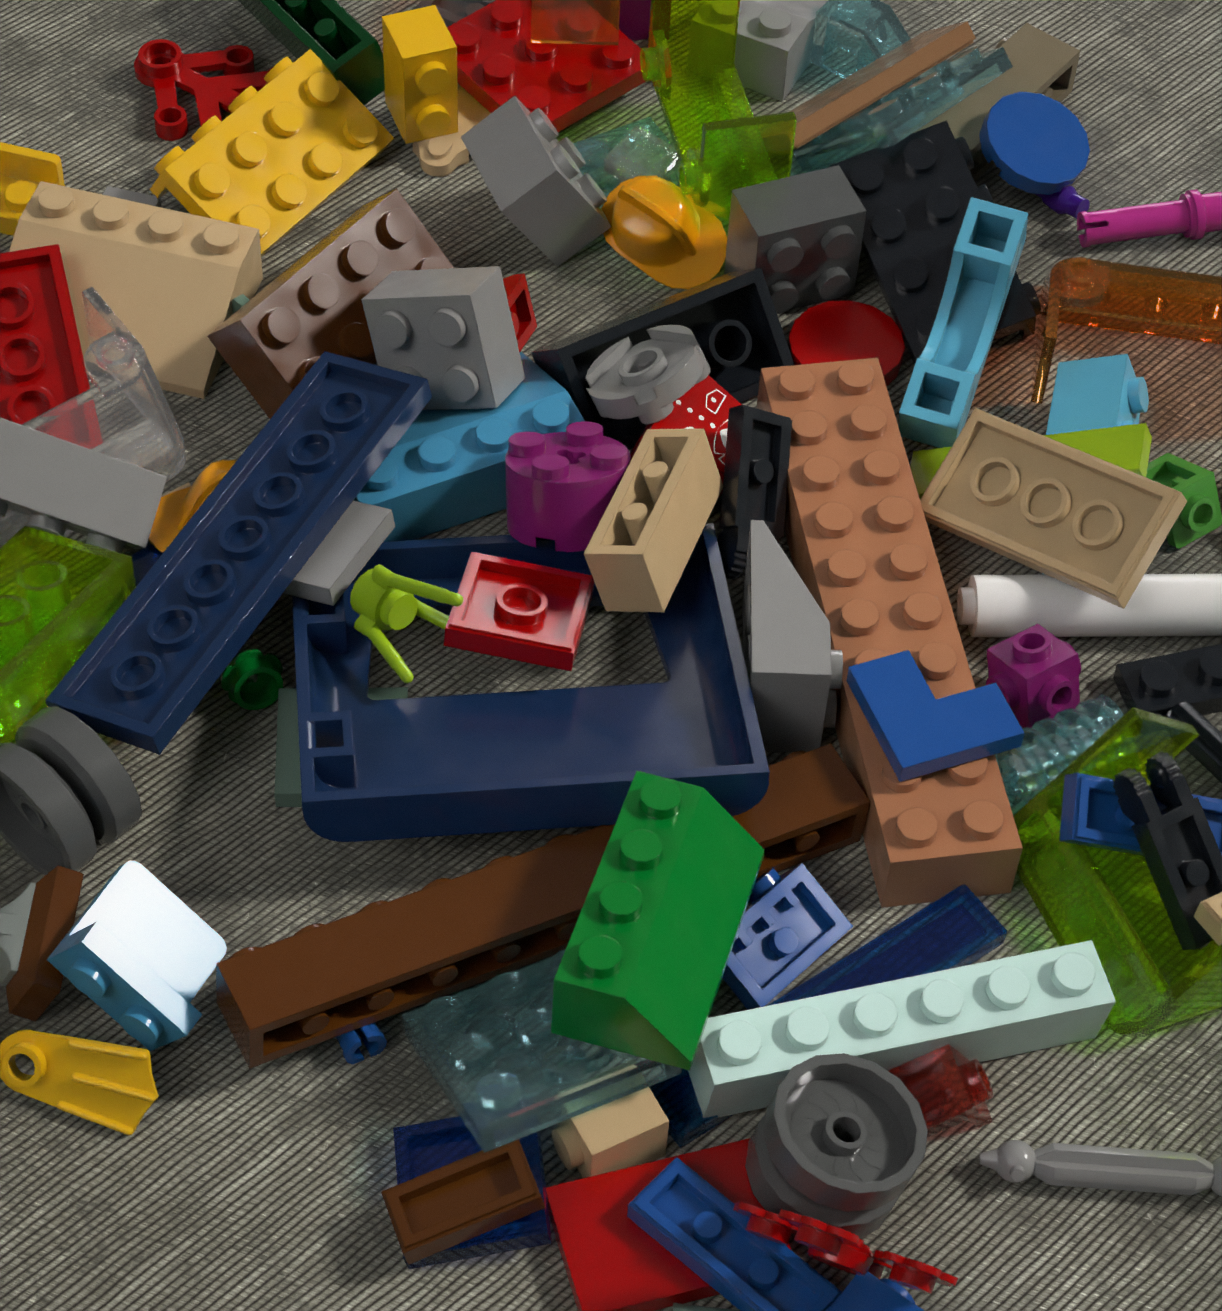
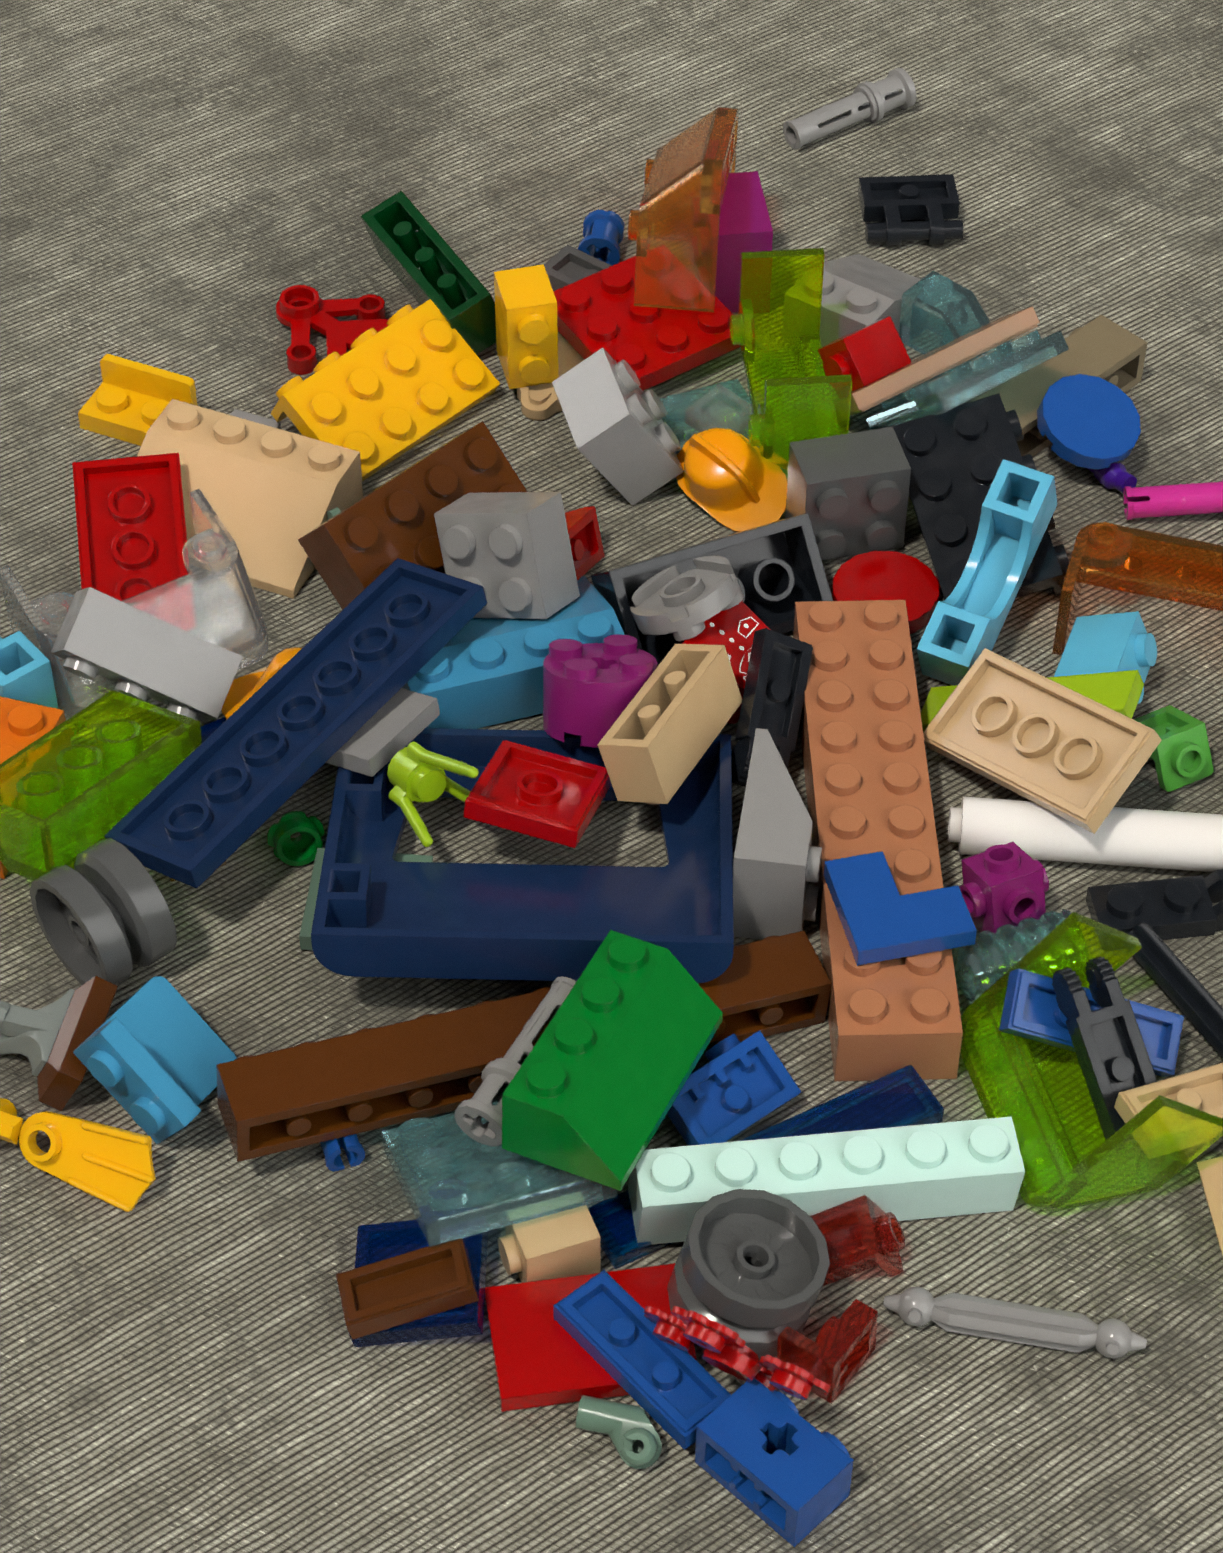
camera: 10 degrees right, 5 degrees down
(542, 948) = (501, 1071): none -> light grey pin
(790, 82) = (866, 353): none -> red slope
(939, 1225) = (838, 1349): none -> clear red bracket

